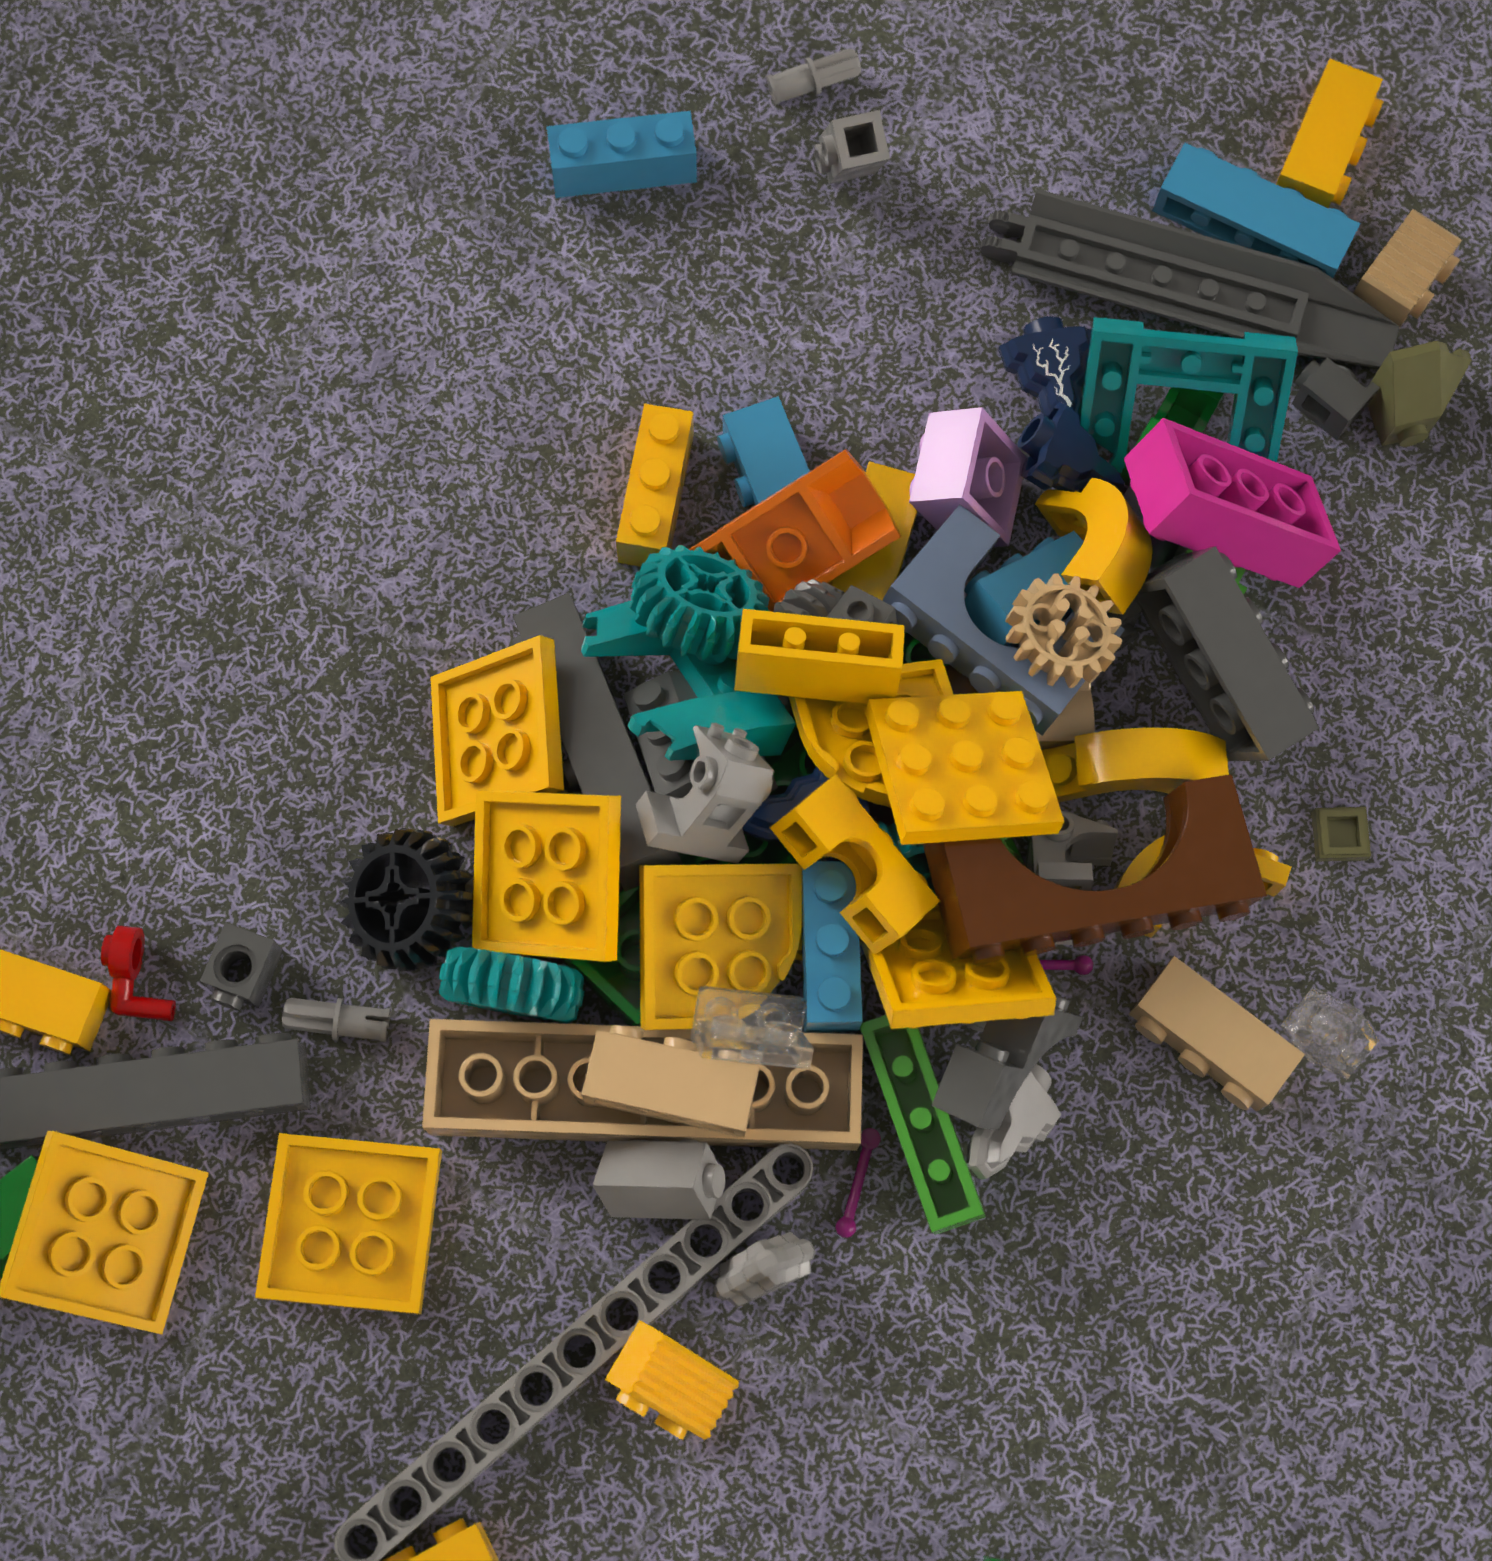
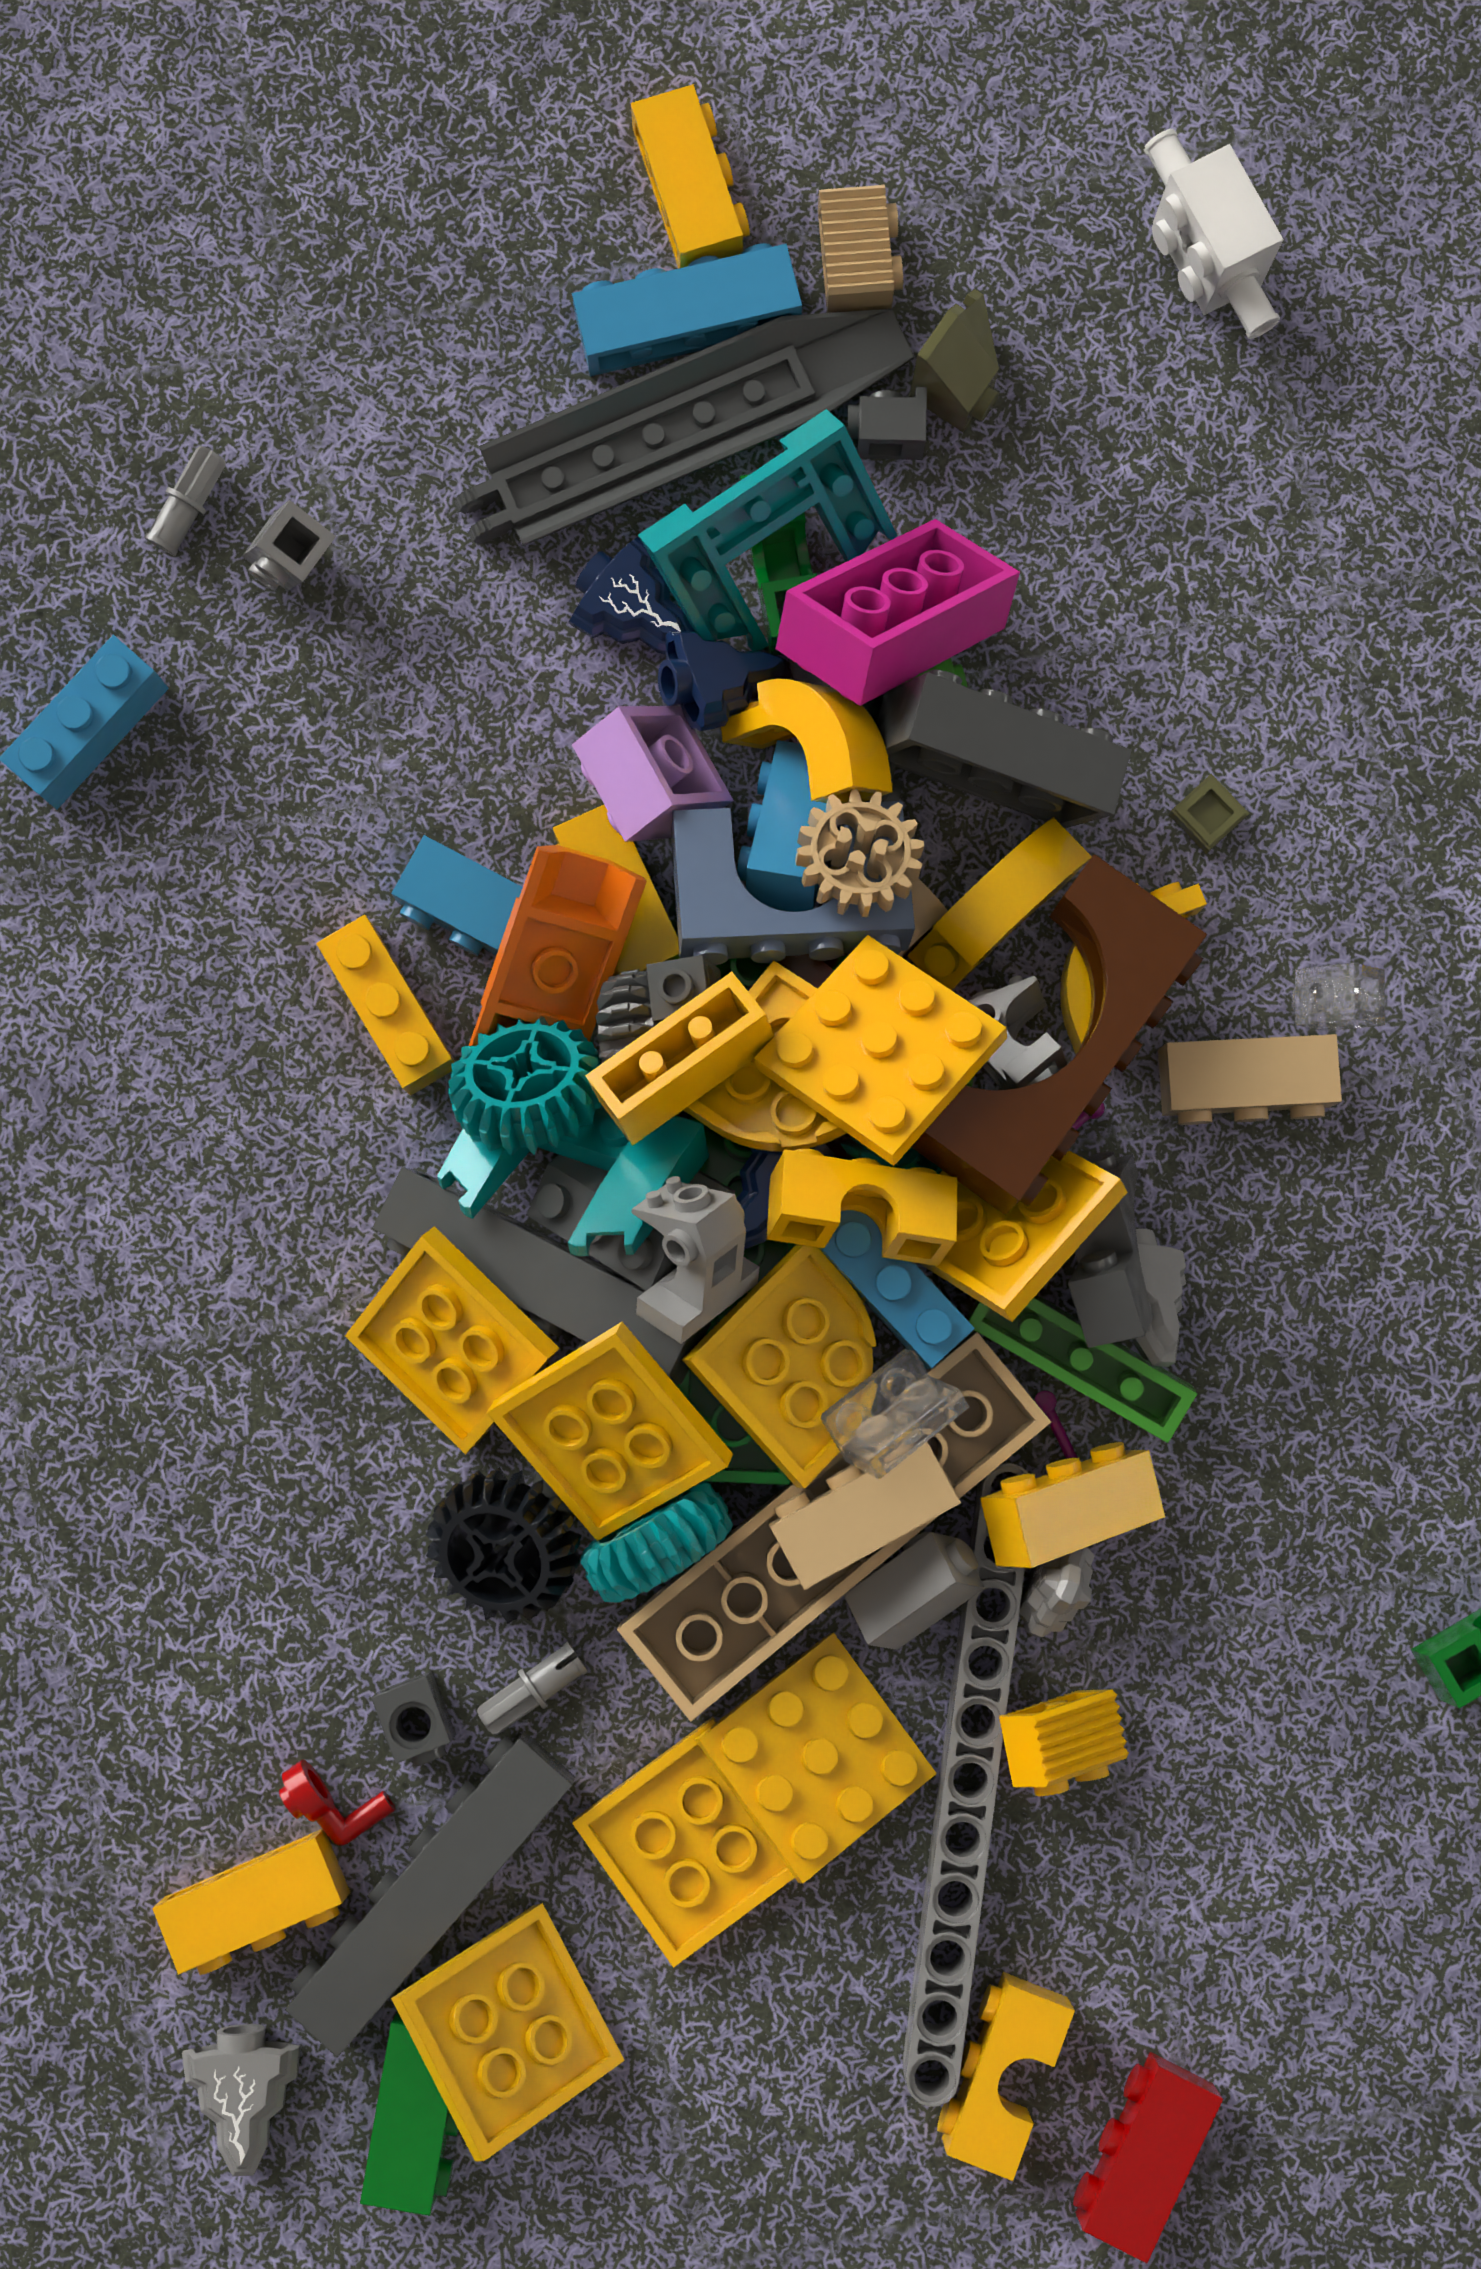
camera: 40 degrees left, 10 degrees up
(486, 1240) = (816, 1757): none -> yellow plate
(824, 1215) = (1071, 1506): none -> yellow brick

